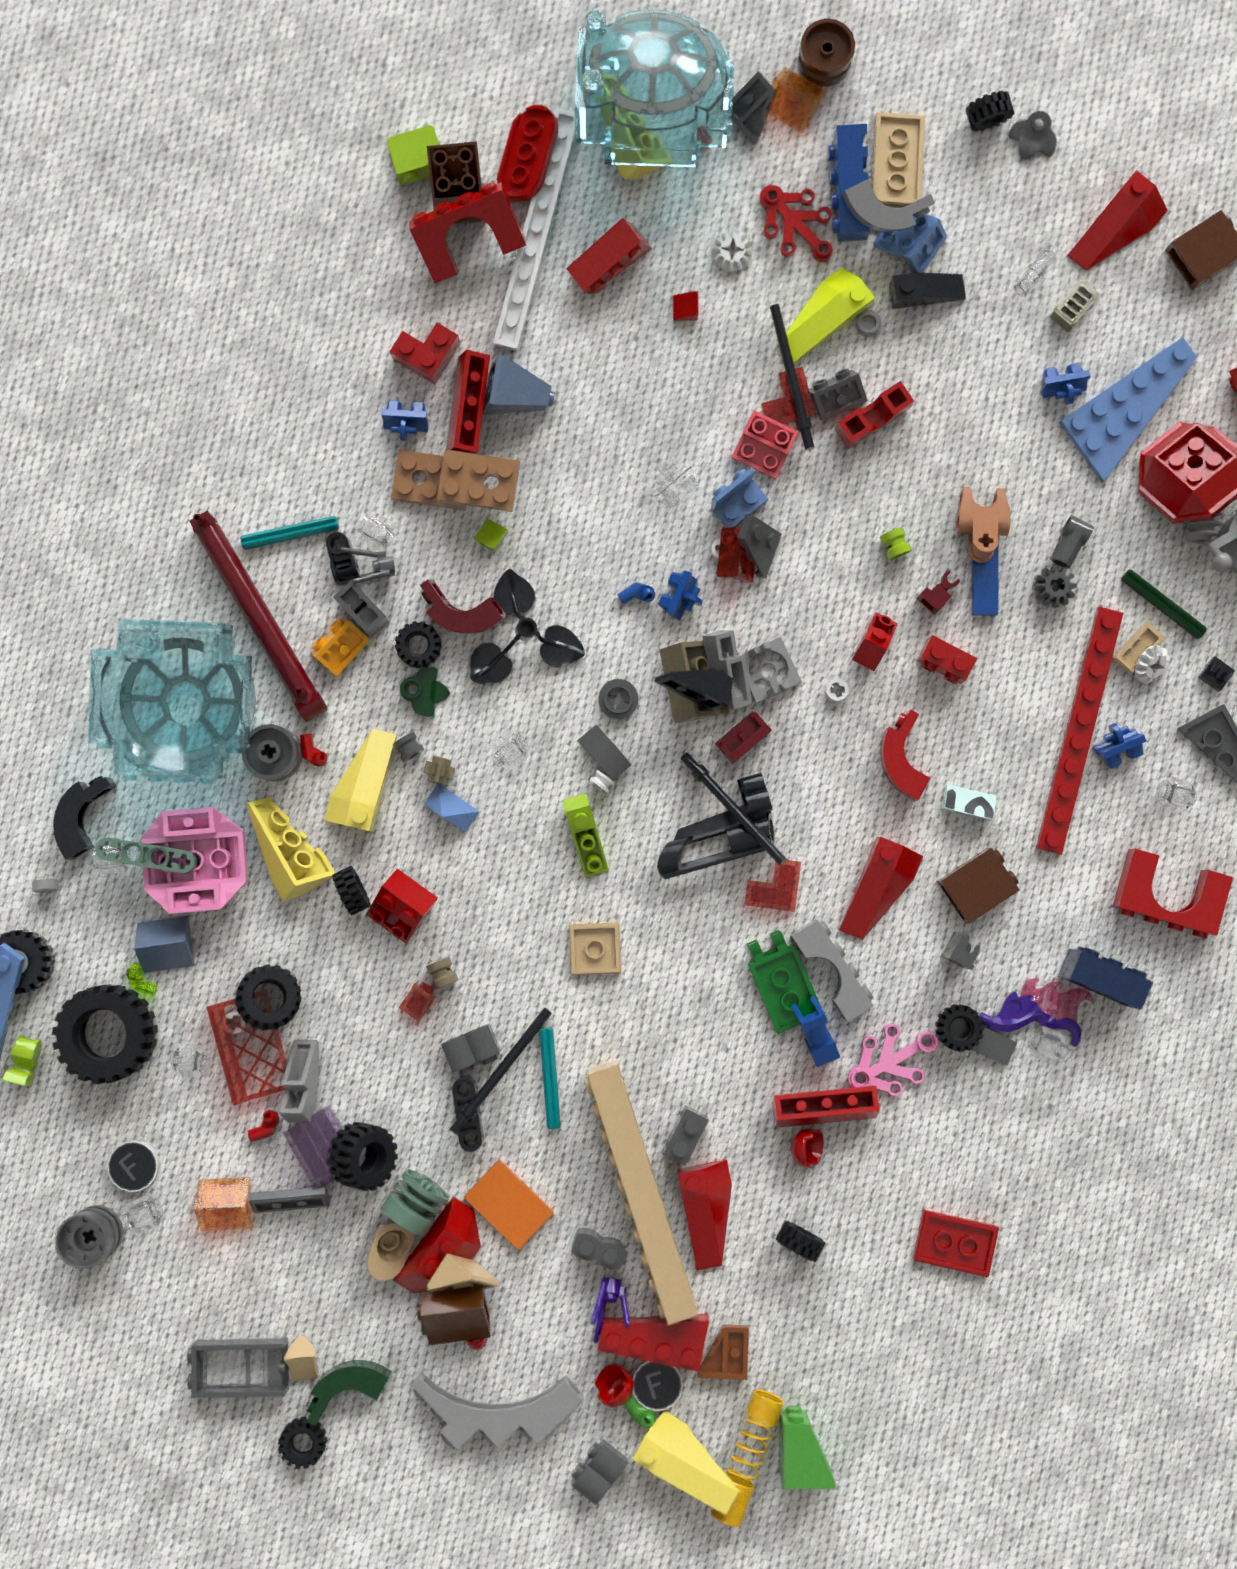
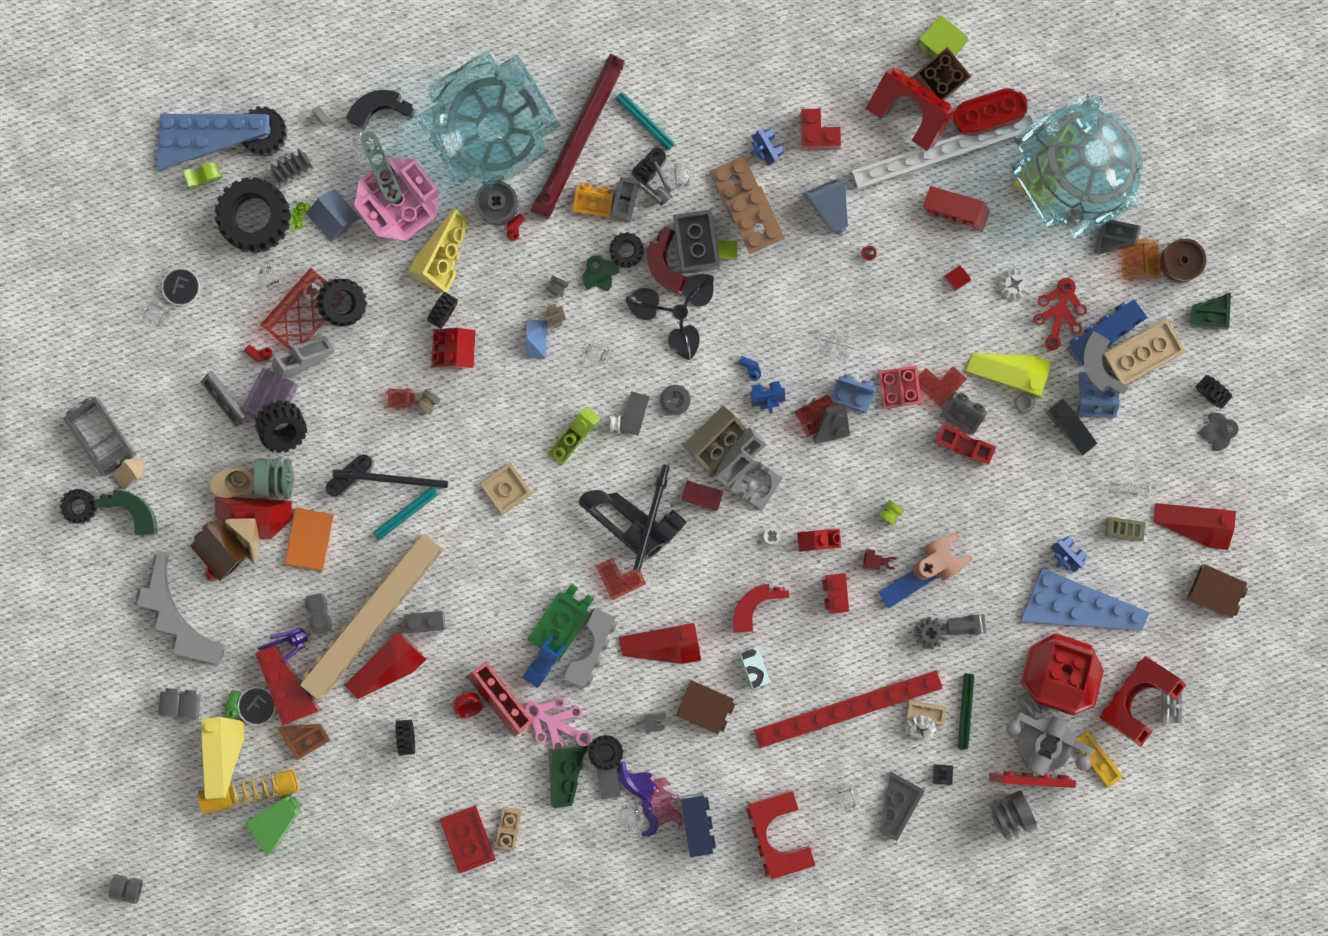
camera: 55 degrees right, 0 degrees up
(76, 1241) = (113, 281): flat silver wheel -> none
(80, 955) = (290, 166): none -> dark grey piece
(223, 1204) = (194, 359): clear orange slope -> none
(361, 788) = (509, 274): light yellow wedge -> none
(459, 561) = (696, 241): none -> dark grey brick
(468, 402) = (801, 180): red brick -> none
(471, 1048) = (392, 451): dark grey brick -> none
(599, 387) = (868, 257): none -> red hinge
(614, 1385) = (239, 678): red hair -> none
(705, 686) = (716, 450): black slope -> none
(803, 422) = (929, 403): black bar -> none
(902, 60) = (1212, 313): none -> dark green wing
(950, 1087) = (564, 772): none -> dark green wing
(973, 1190) = (508, 828): none -> tan slope
(1119, 741) = (856, 738): blue hips -> none

